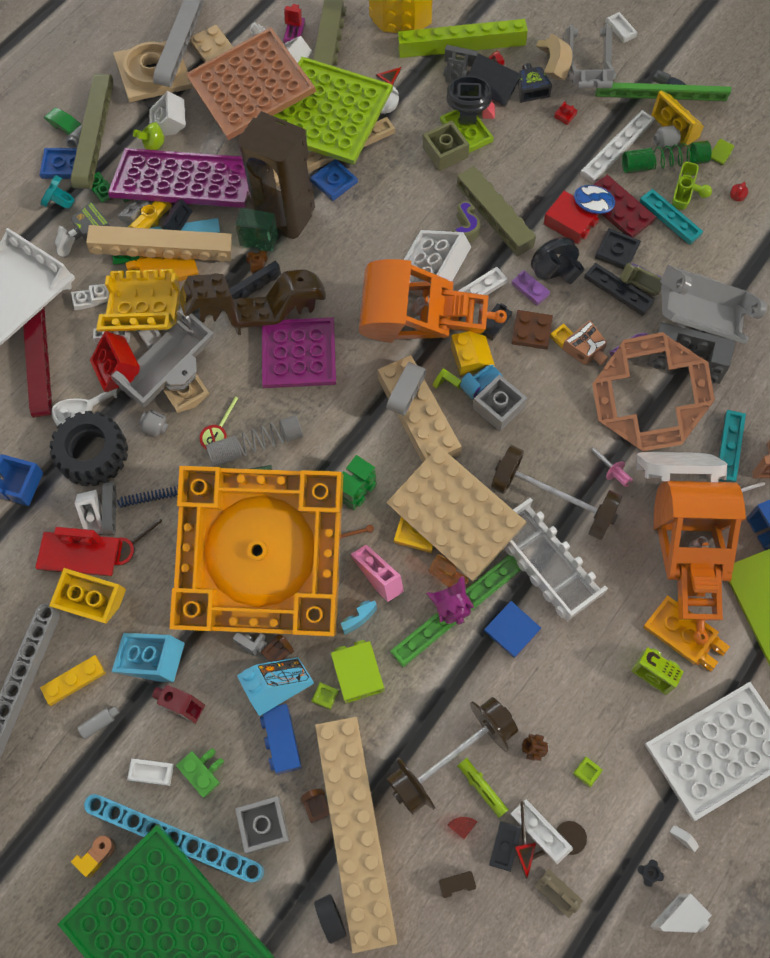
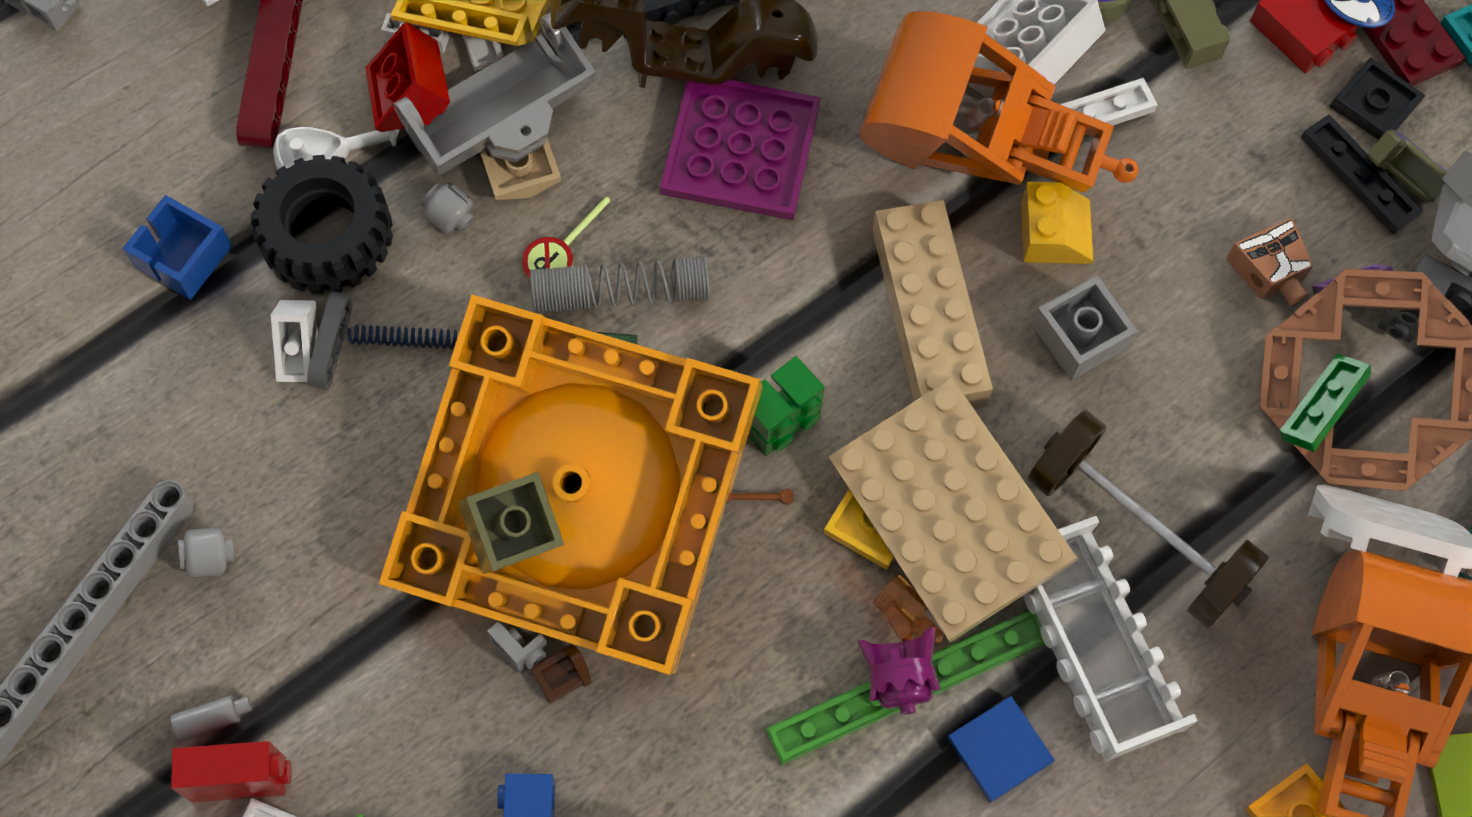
camera: 10 degrees right, 0 degrees up
(72, 637) = (204, 552): none -> light grey head
(72, 680) = (185, 630): yellow plate -> none
(78, 551) = (254, 403): red bracket -> none
(87, 596) = (250, 486): yellow slope -> none
(116, 747) = (230, 771): none -> red brick
(126, 548) = (333, 420): piece -> none
(148, 656) = (330, 623): medium azure slope -> none
(179, 703) = (361, 721): dark red torso -> none
(230, 579) = (510, 523): none -> olive brick
(274, 683) = (540, 730): medium azure slope -> none
(325, 696) = (626, 779): lime tile -> none
(357, 671) = (696, 750): lime brick -> none
(364, 611) = (737, 646): medium azure slope -> none
(378, 572) = (782, 581): bright pink slope -> none
(406, 388) = (918, 259): light grey beam -> none
(445, 375) = (997, 252): lime tile -> none
(475, 384) = (1047, 283): dark azure animal -> none
(494, 328) = (1107, 188): black plate -> none
(530, 287) = (1196, 131): medium lavender plate -> none
(532, 329) = (1179, 209): reddish brown plate -> none
(548, 265) = (1240, 99): black piece -> none
(561, 334) = (1229, 231): yellow tile -> none
(616, 470) = (1267, 506): bright pink piece -> none
(630, 410) = (1325, 402): none -> plate

